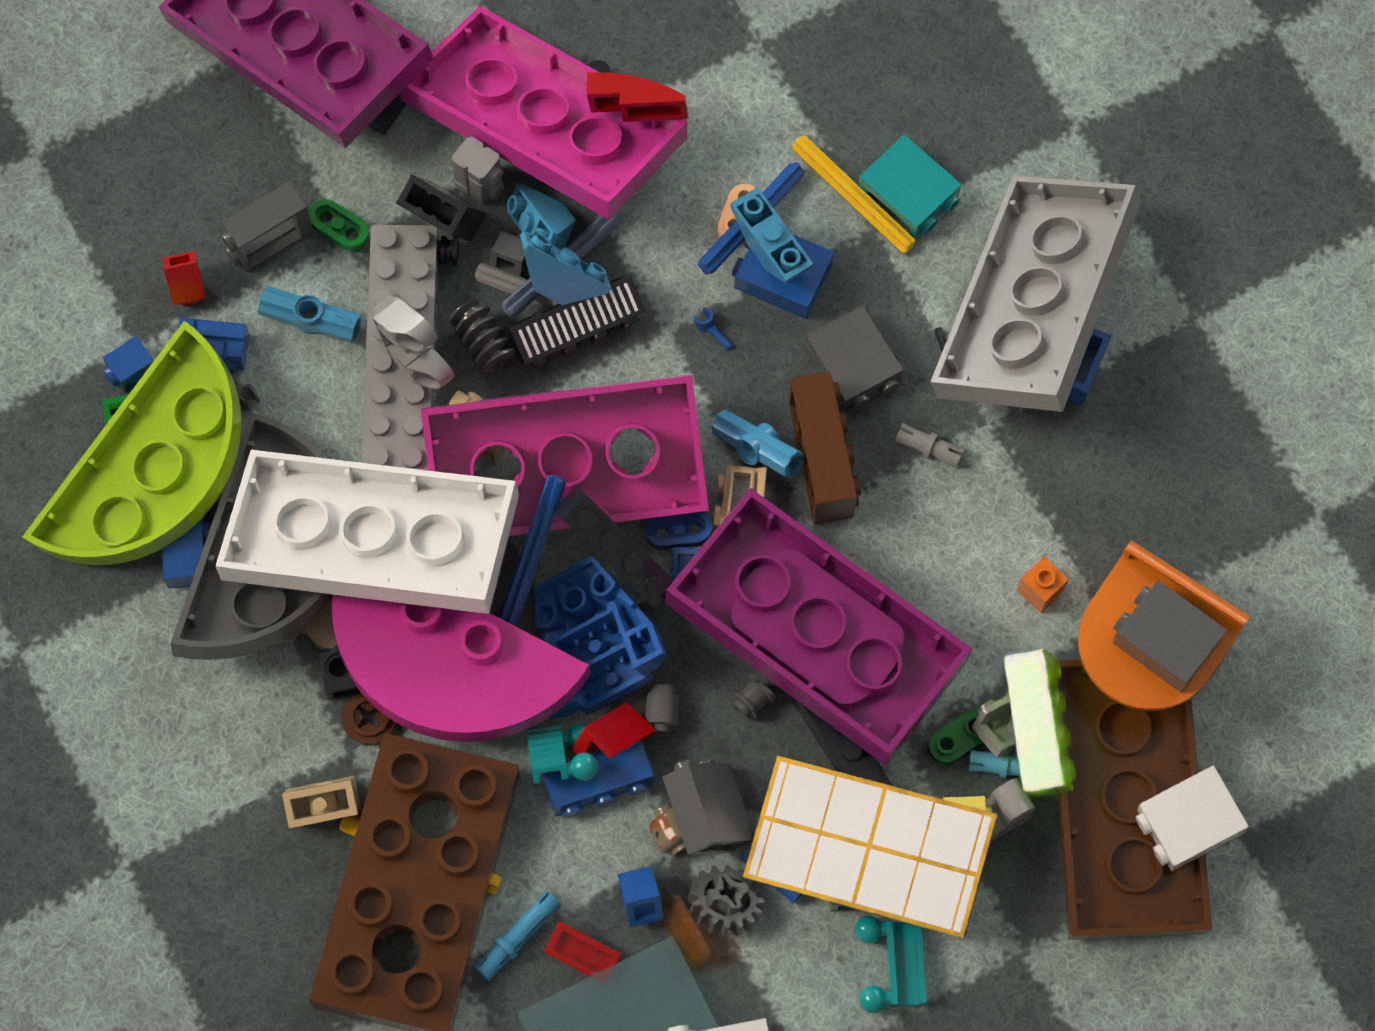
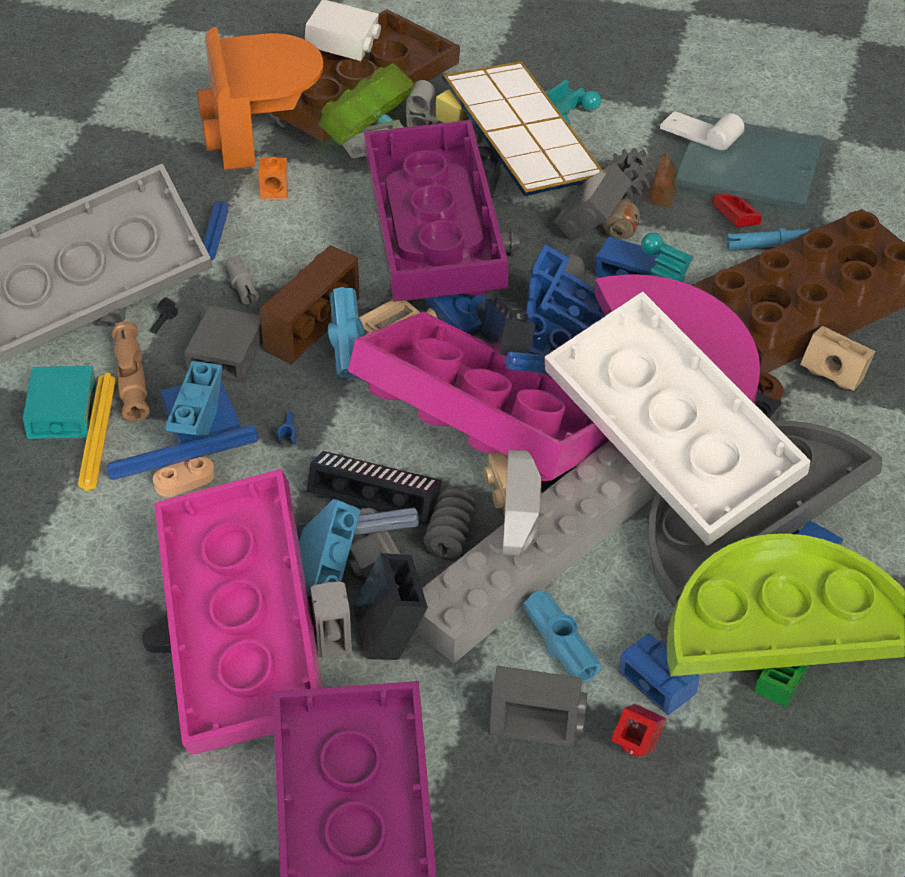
camera: 135 degrees left, 25 degrees down
(127, 364) = (741, 708): blue brick -> none
(339, 226) = (474, 686): green plate -> none
(560, 272) = (355, 488): dark azure slope -> none
(614, 732) = (612, 259): red panel -> none
(635, 98) = (174, 538): red slope -> none
(640, 896) = (676, 202): blue brick -> none
(901, 268) = (131, 375): none -> medium nougat piece
(1024, 483) = (215, 228): none -> blue axle
(1167, 635) = (260, 46): dark grey brick -> none

